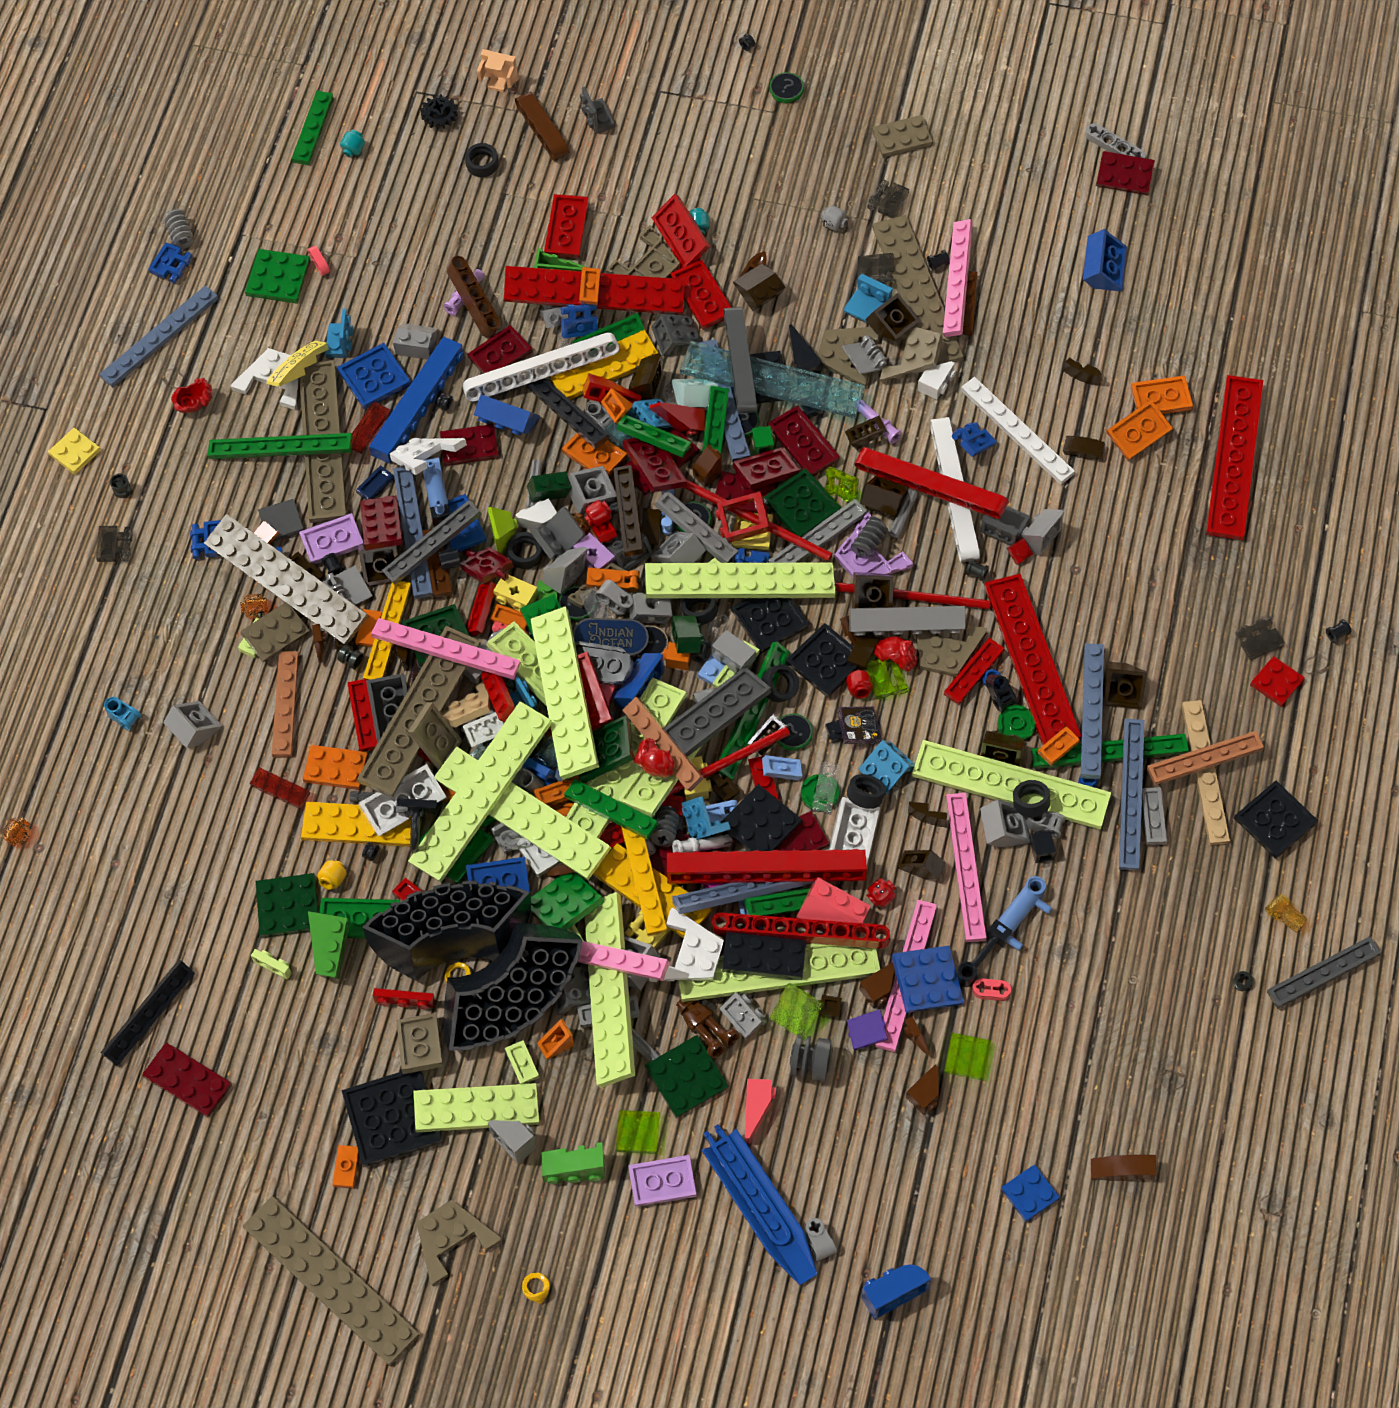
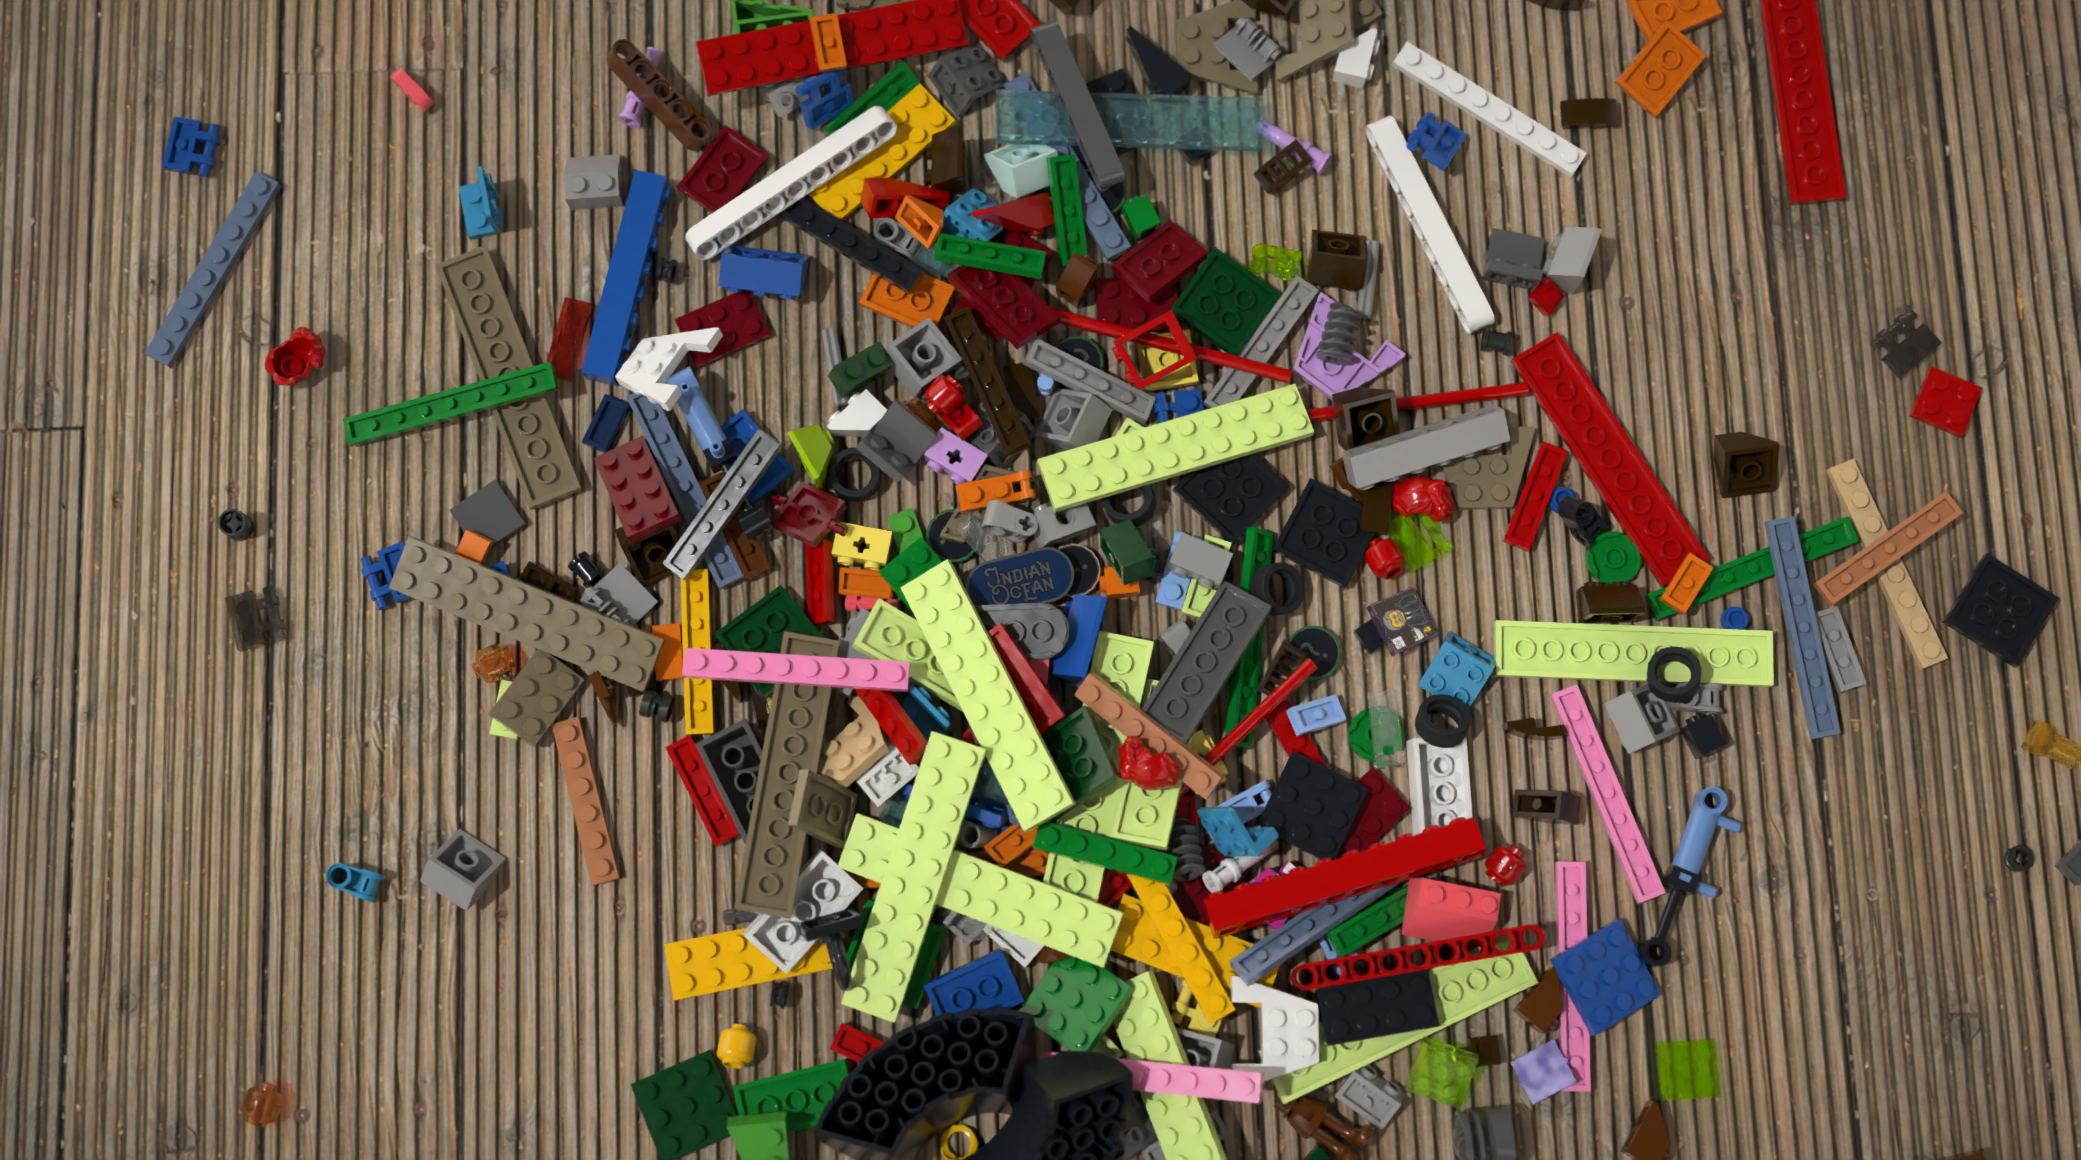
camera: 20 degrees left, 15 degrees up
(74, 451) = (148, 485): light yellow plate -> none
(179, 228) = (187, 90): light grey piece -> none
(261, 371) = (405, 280): white wing -> none
(277, 276) = (358, 128): green plate -> none
(279, 788) = (620, 934): clear red plate -> none
(294, 365) = (431, 271): light yellow slope -> none
(334, 767) = (688, 878): orange plate -> none
(335, 536) = (571, 528): lavender plate -> none
(373, 375) = (551, 254): blue plate -> none
(565, 569) = (922, 492): light grey slope -> none
(724, 789) = (1245, 766): dark brown plate -> none
(803, 441) = (1197, 202): dark red plate -> none
(912, 1031) = (1605, 1057): reddish brown plate -> none
(931, 483) = (1400, 227): red beam -> none
(993, 993) = (1692, 970): coral beam -> none
(1092, 711) = (1714, 516): sand blue plate -> none
(1338, 631) = (2010, 304): black bush -> none

